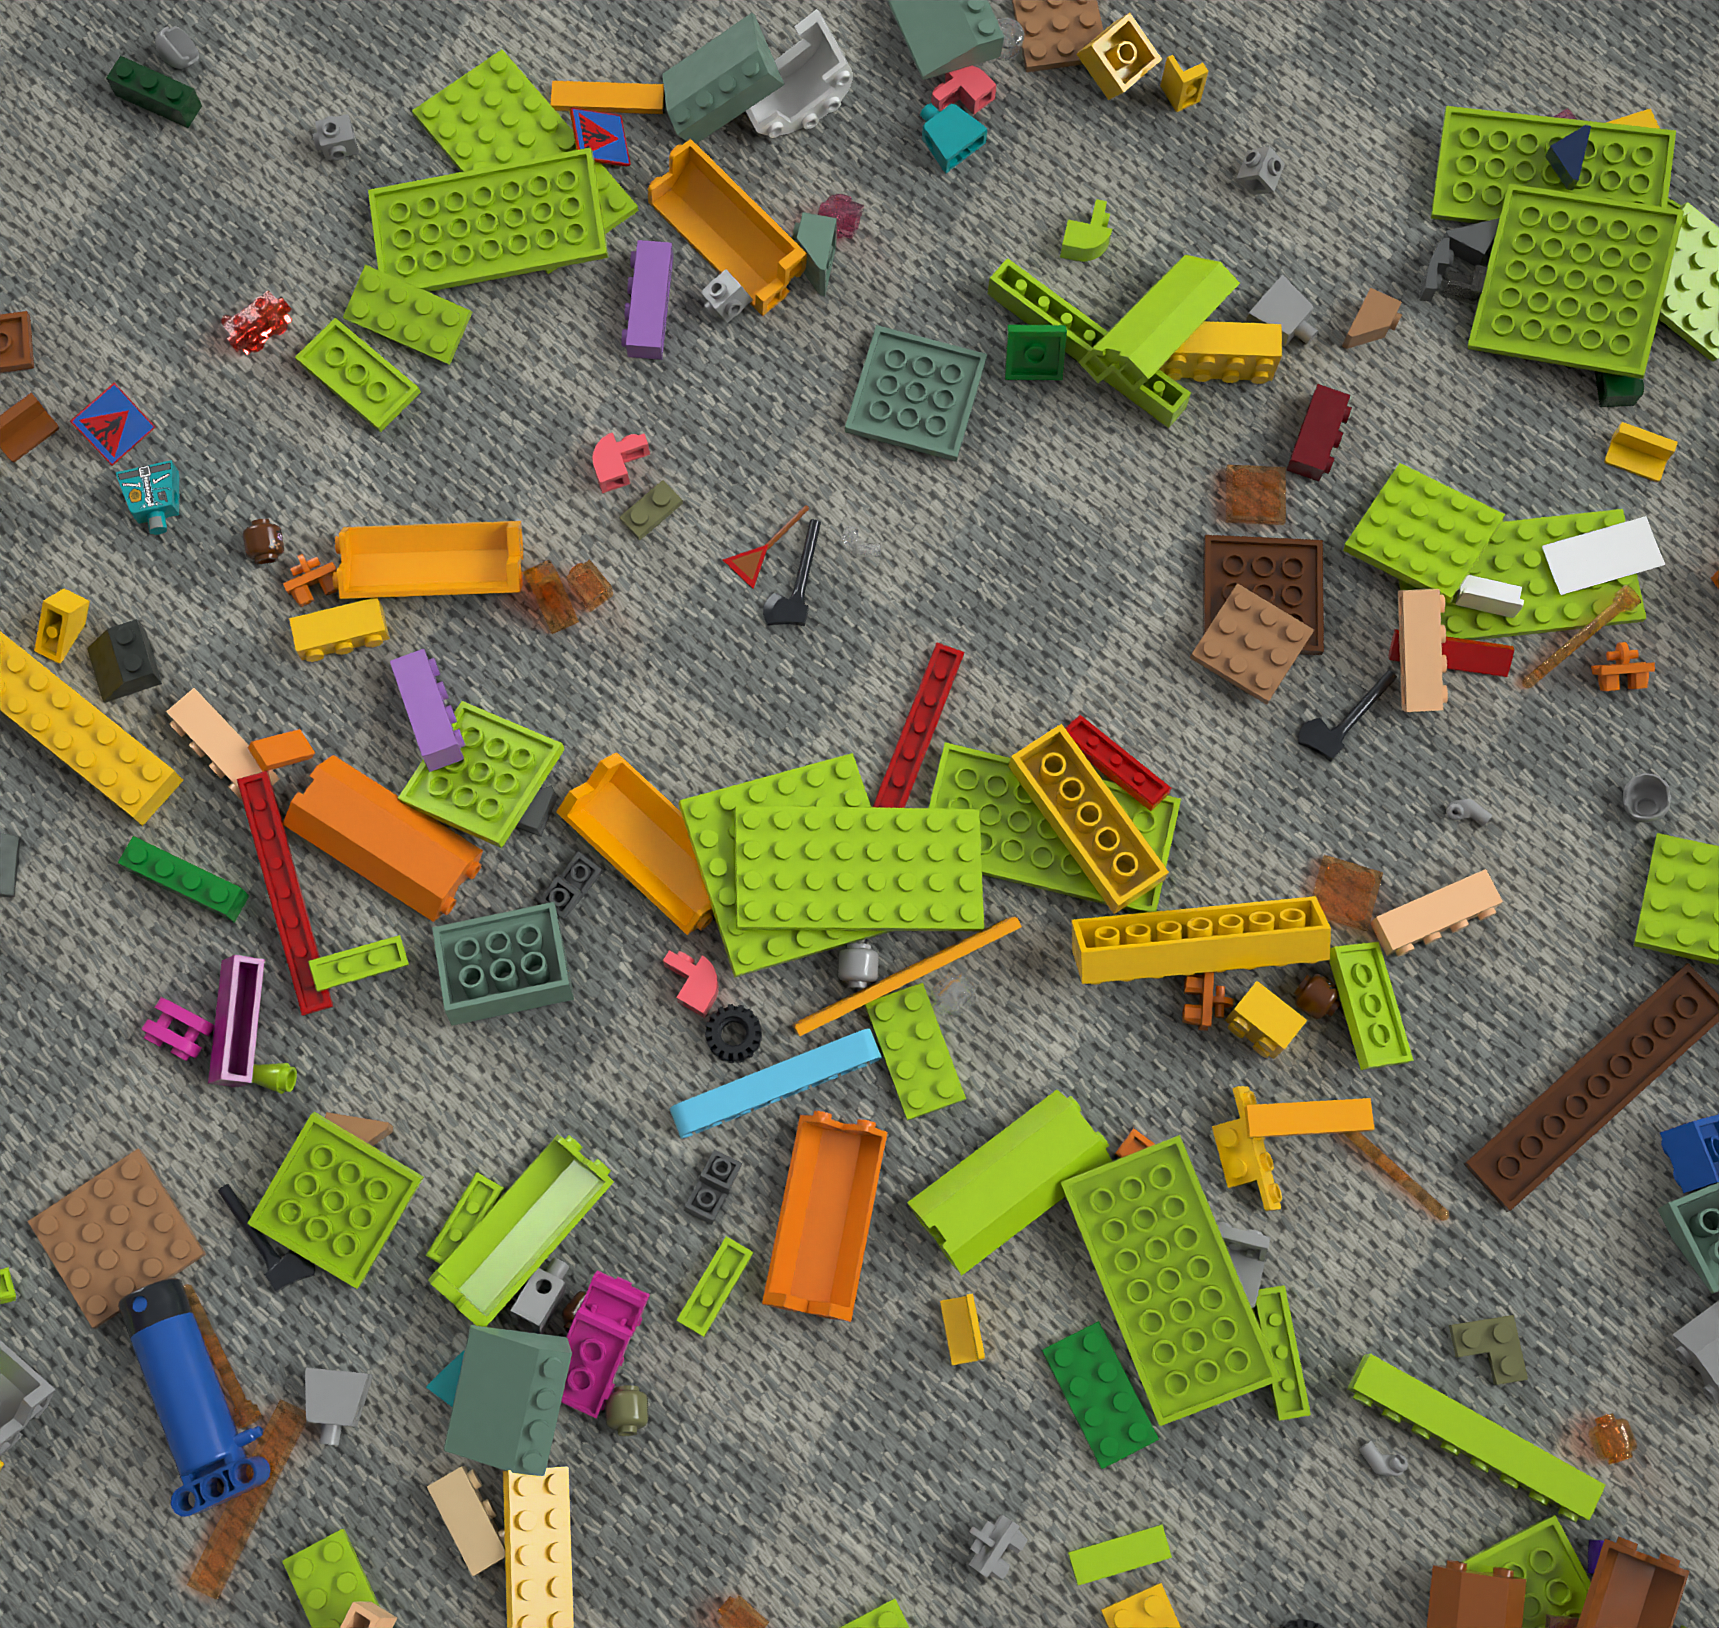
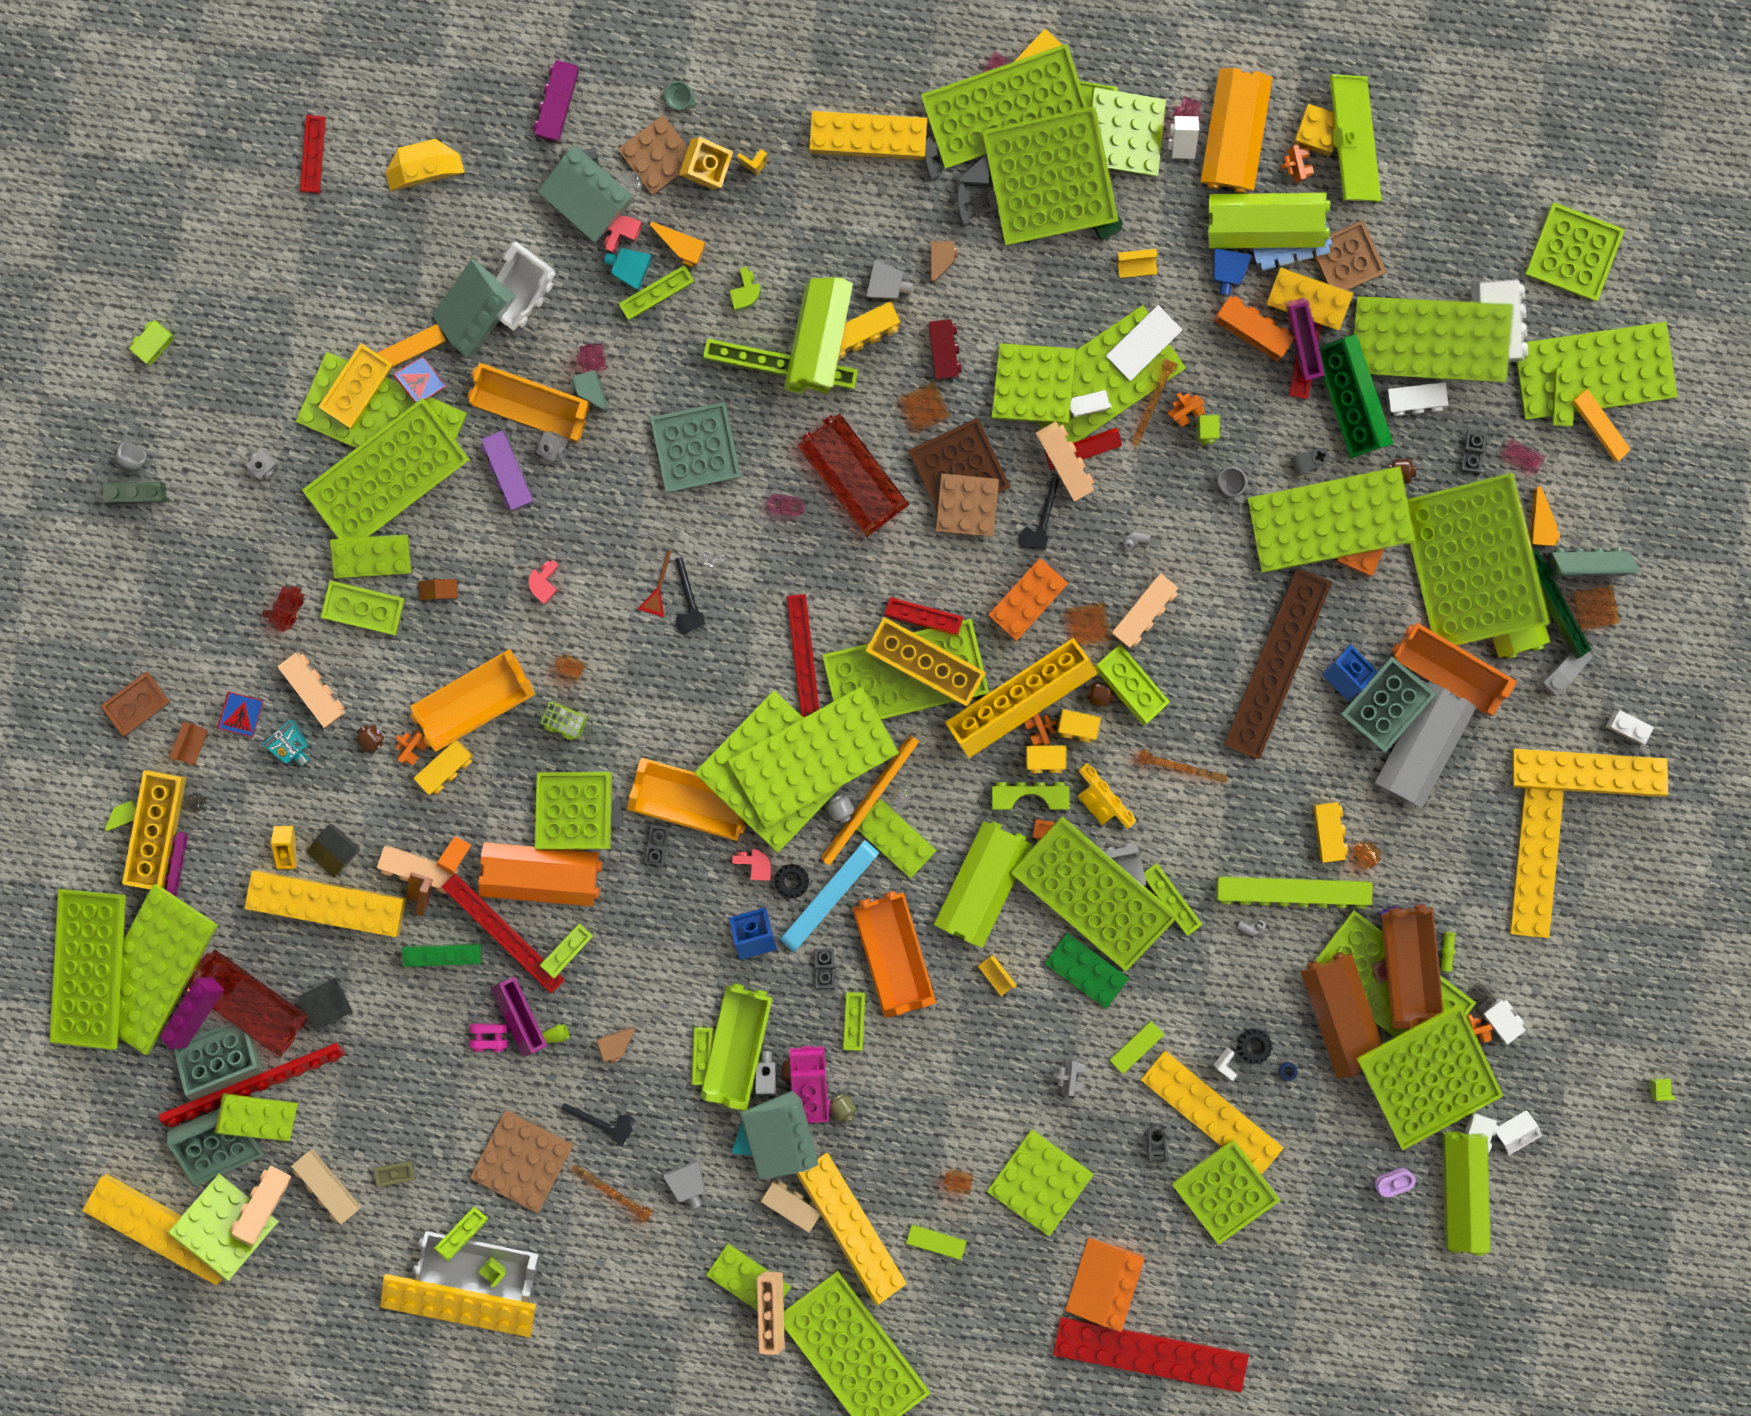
camera: 25 degrees left, 15 degrees up
(189, 1399) = (611, 1222): blue piece -> none
(204, 775) = (419, 890): none -> dark orange panel
(226, 442) = (311, 690): none -> light nougat brick
(244, 1510) = (670, 1254): clear orange tile -> none
(335, 1200) = (628, 1083): lime plate -> none
(426, 709) = (522, 790): medium lavender brick -> none
(471, 401) = (438, 589): none -> dark orange slope
(502, 964) = (644, 909): sand green slope -> none
(514, 99) = (356, 385): none -> yellow plate
(540, 647) = (564, 720): none -> brick
(550, 596) = (552, 684): clear orange slope -> none
(636, 1080) = (752, 933): none -> blue slope
(651, 510) = (580, 600): olive plate -> none
(969, 182) = (656, 292): none -> lime plate
(1001, 523) = (786, 505): none -> clear pink plate
(1035, 352) = (753, 388): green plate -> none
(1036, 144) = (684, 246): none -> light orange slope
(1112, 529) = (852, 474): none -> clear red panel
(1178, 1107) = (1055, 796): none -> lime arch
(1194, 1043) = (1045, 758): none -> yellow brick
(1260, 170) = (828, 193): light grey brick -> none
(1275, 812) = (1028, 599): none -> orange brick
(1309, 1118) = (1127, 767): light orange tile -> none
(1349, 127) = (868, 135): none -> yellow brick
(1419, 195) = (930, 154): none -> dark grey slope
(1499, 1340) = (1285, 832): olive plate -> none
(1568, 155) = (1010, 94): dark blue slope -> none
(1570, 1375) = (1330, 832): none -> yellow brick
(1644, 707) = (1207, 429): none -> lime brick

